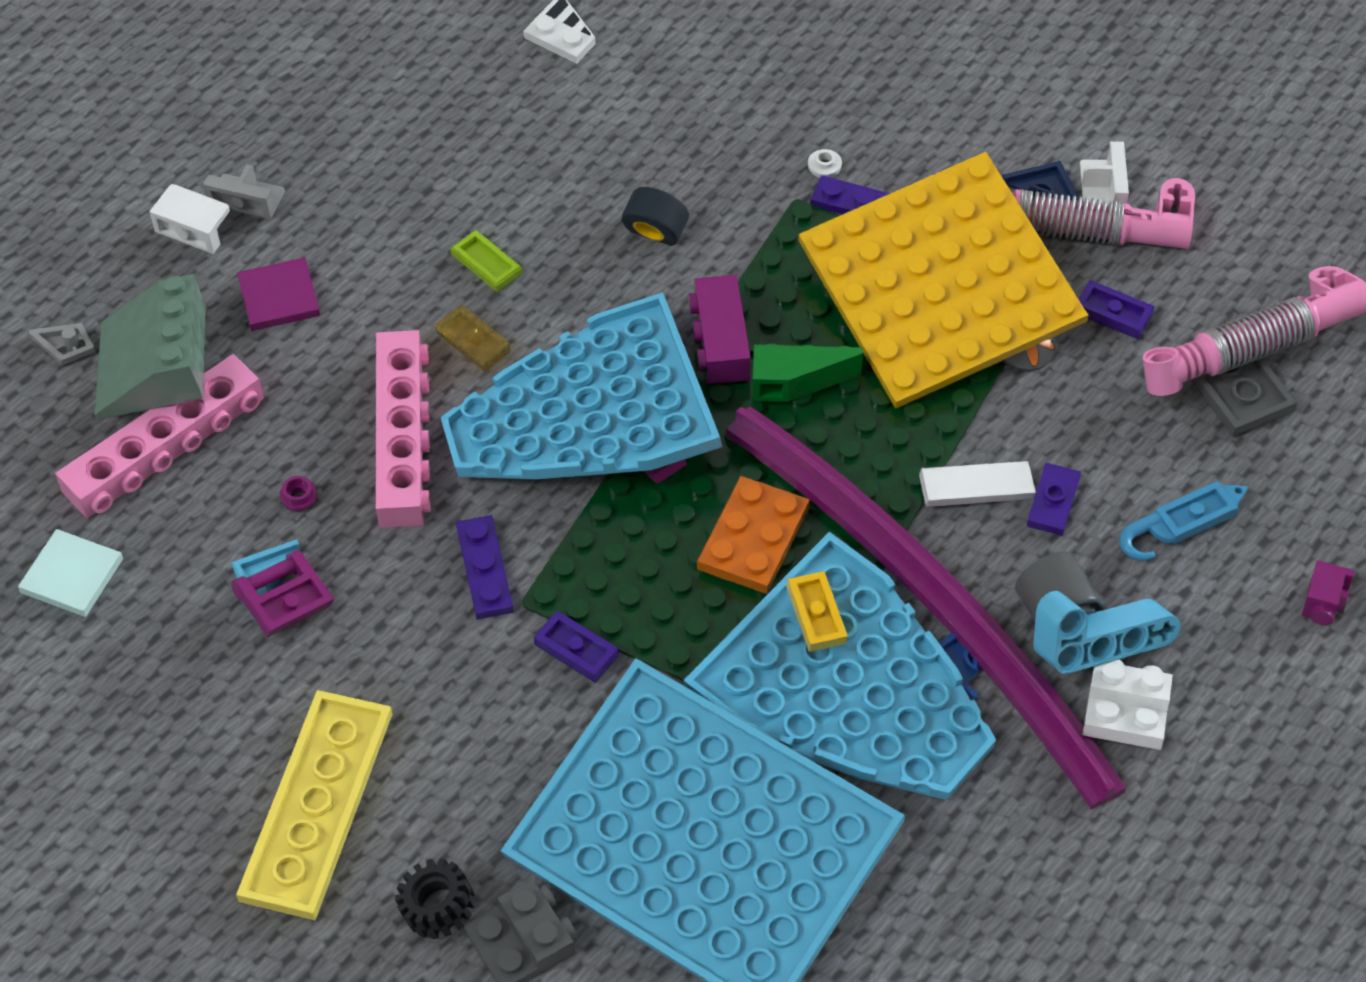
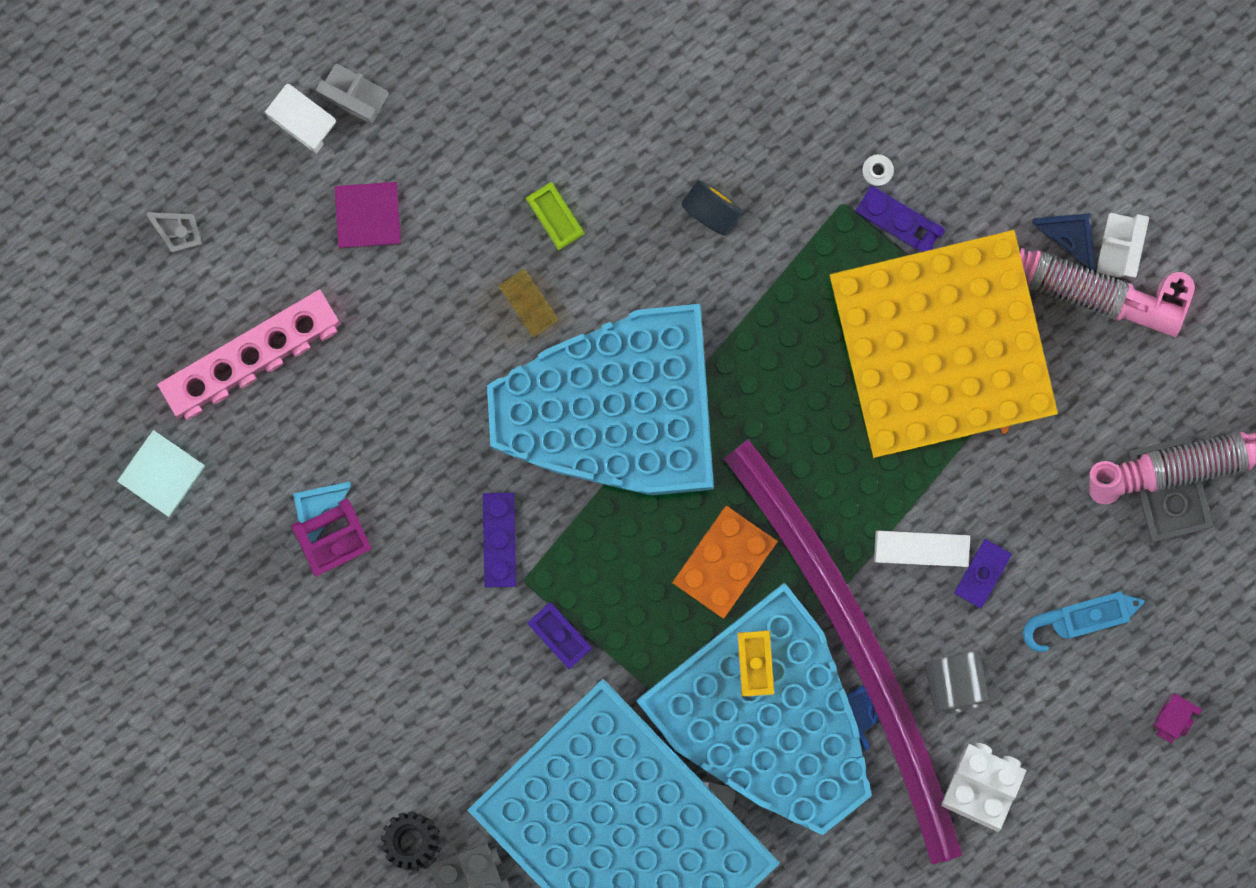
camera: 10 degrees right, 30 degrees up
(152, 350) = (250, 270): sand green slope -> none
(294, 485) = (357, 425): magenta plate -> none
(315, 805) = (332, 735): light yellow plate -> none
(400, 429) = (455, 308): bright pink brick -> none
(720, 329) = (741, 349): magenta brick -> none
(792, 372) = (792, 409): green slope -> none
(1079, 641) = (989, 725): medium azure beam -> none
(1116, 309) = (1089, 391): dark purple plate -> none

